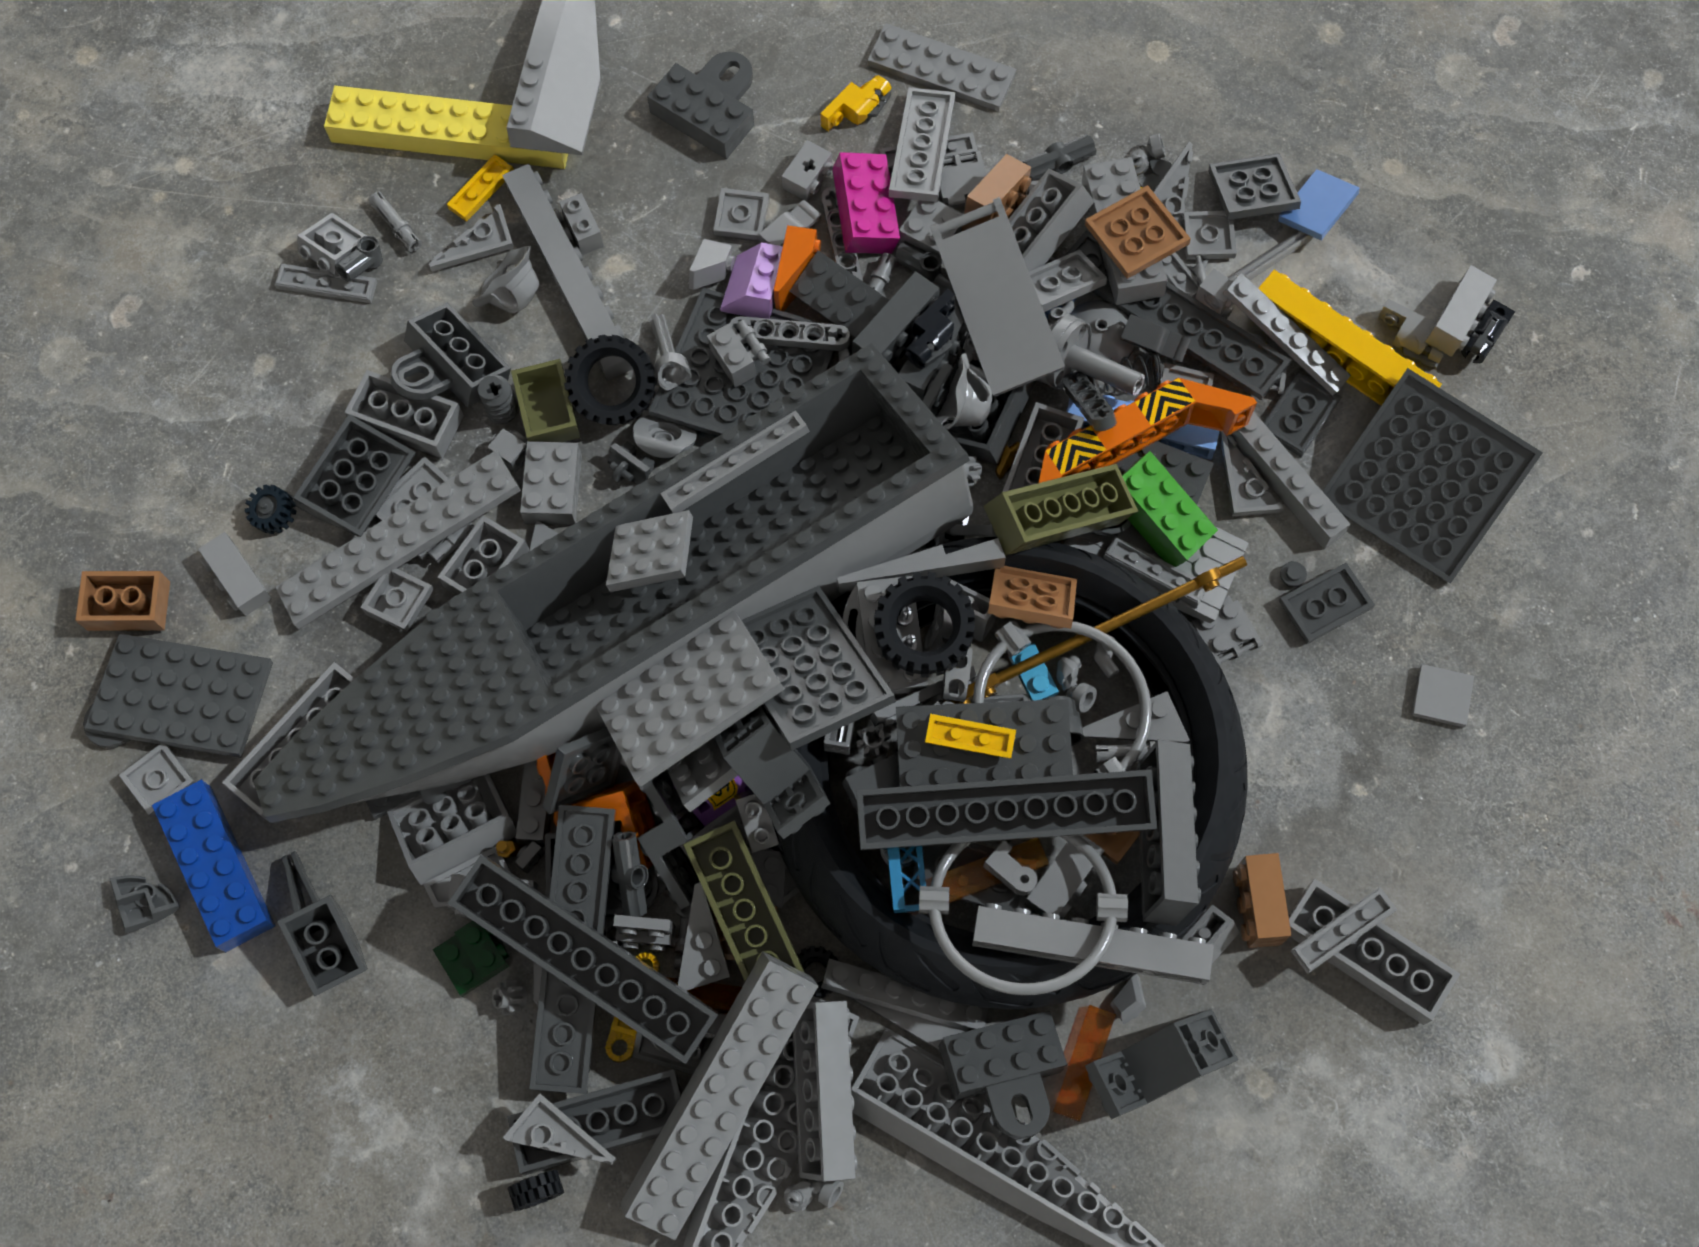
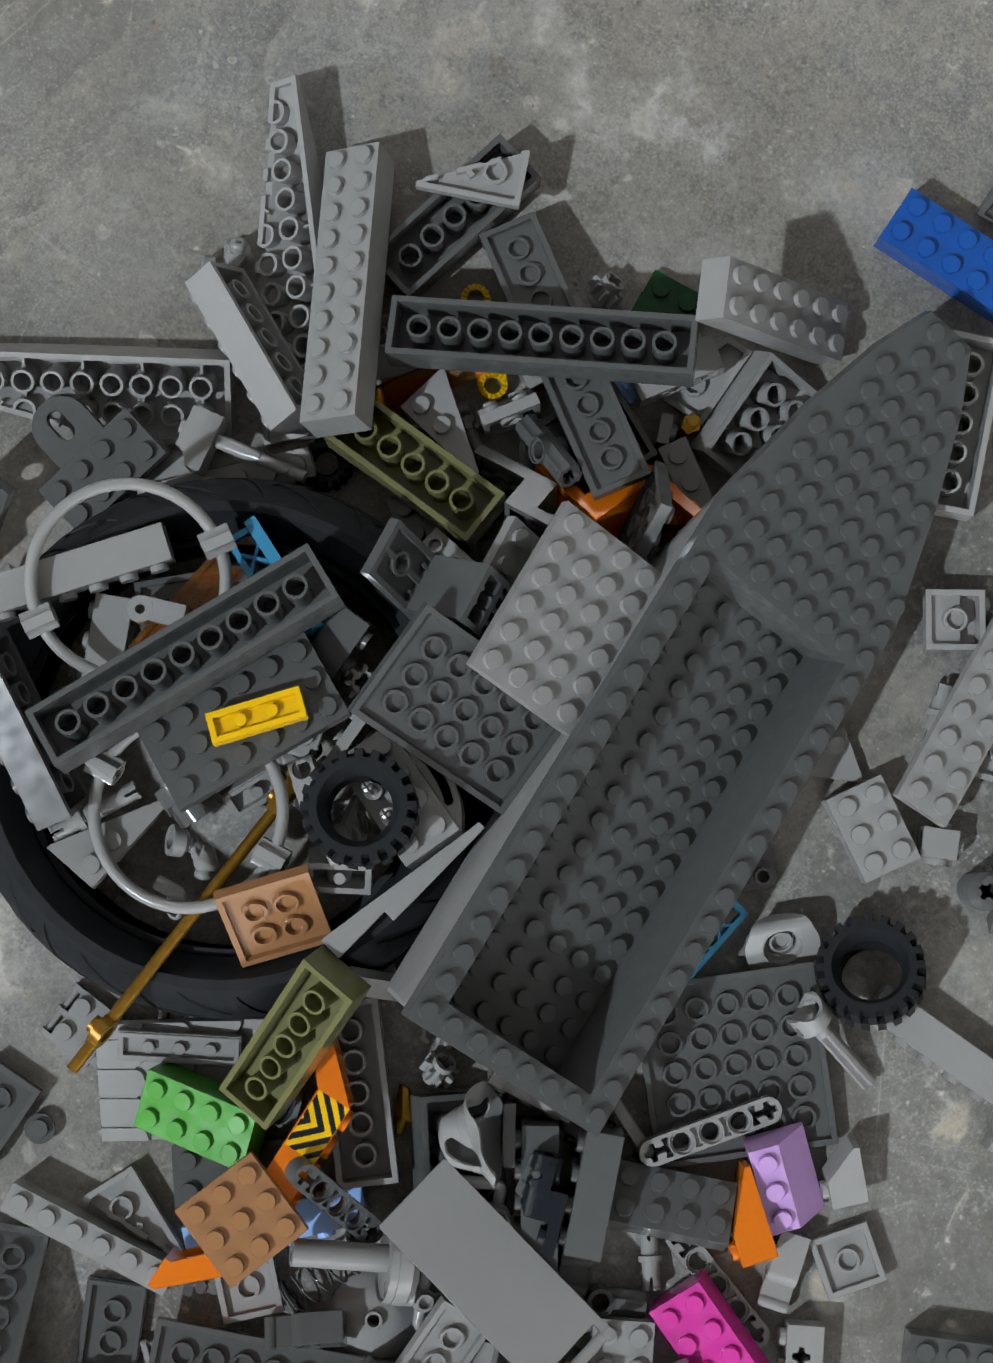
camera: 155 degrees right, 15 degrees up
(319, 935) = (817, 248): dark grey slope -> none
(388, 890) = (771, 310): none -> light grey brick
(481, 555) = (889, 705): light grey brick -> none
(535, 1190) = (478, 130): black tyre -> none
(545, 403) = (929, 911): olive piece -> none
(627, 466) = (801, 888): dark grey hips -> none
(649, 551) = (705, 776): light grey plate -> none
(733, 356) = (757, 1070): light grey brick -> none
(734, 462) = (671, 922): light grey plate -> none
(906, 1038) = (204, 434): none -> light grey piece
(1038, 680) = (228, 835): medium azure plate -> none
(1087, 1049) = (27, 500): clear orange tile -> none
(1164, 412) = (241, 1219): none -> medium nougat plate

